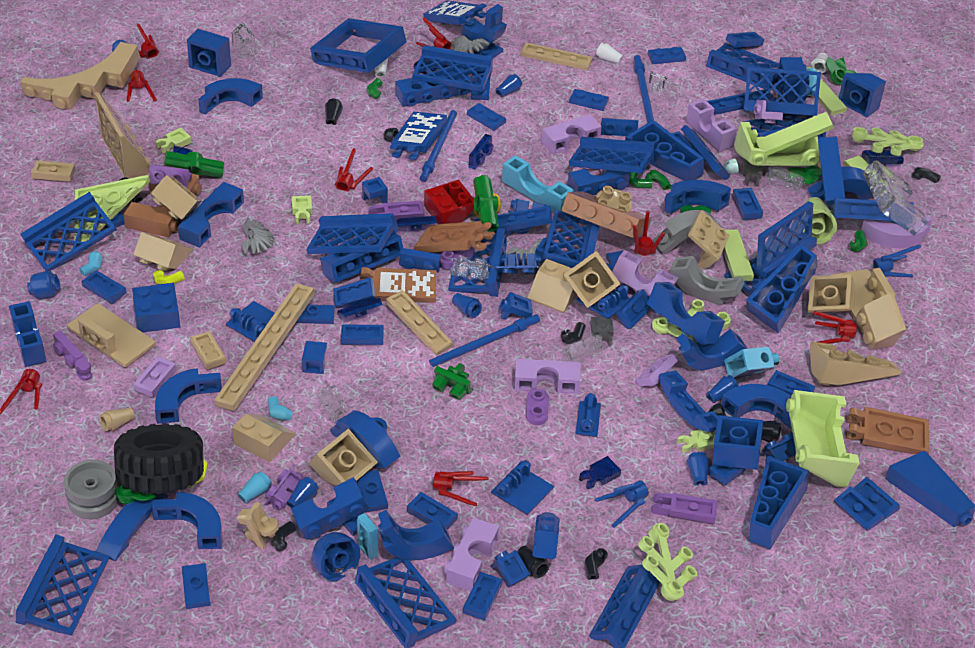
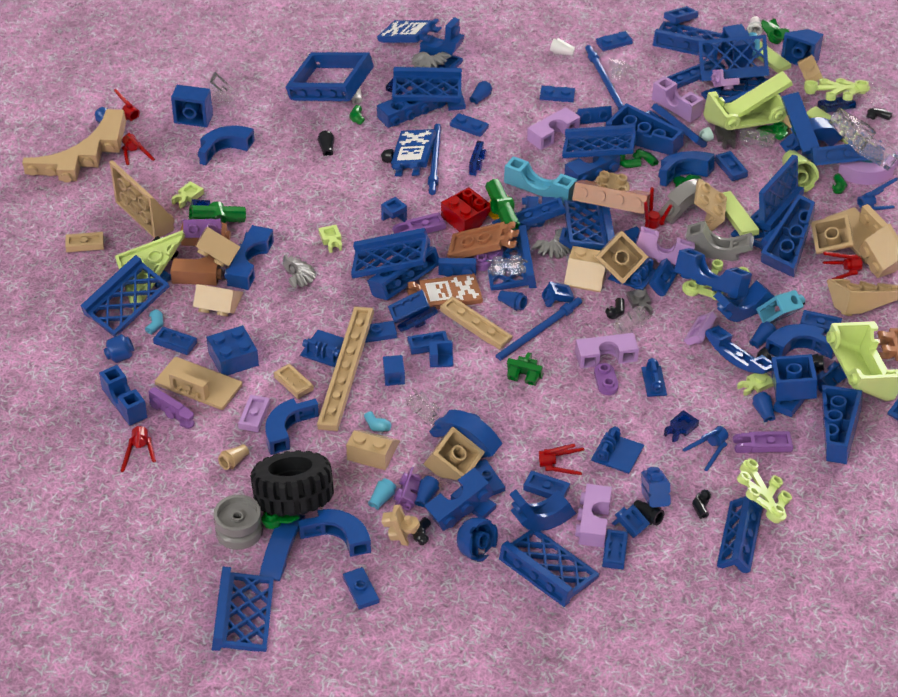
camera: 10 degrees left, 0 degrees up
(160, 278) = (223, 324): neon yellow arm -> none
(345, 179) = (361, 205): red plant -> none
(367, 536) = (501, 516): medium azure plate -> none
(370, 348) = (441, 353): none -> blue panel
(416, 222) = (441, 233): clear blue plate -> none
(440, 40) = (402, 59): red plant -> none
(528, 266) = (560, 256): blue hinge -> none
(556, 56) = (513, 57): tan tile -> none
(864, 115) = (810, 69): none -> tan bracket

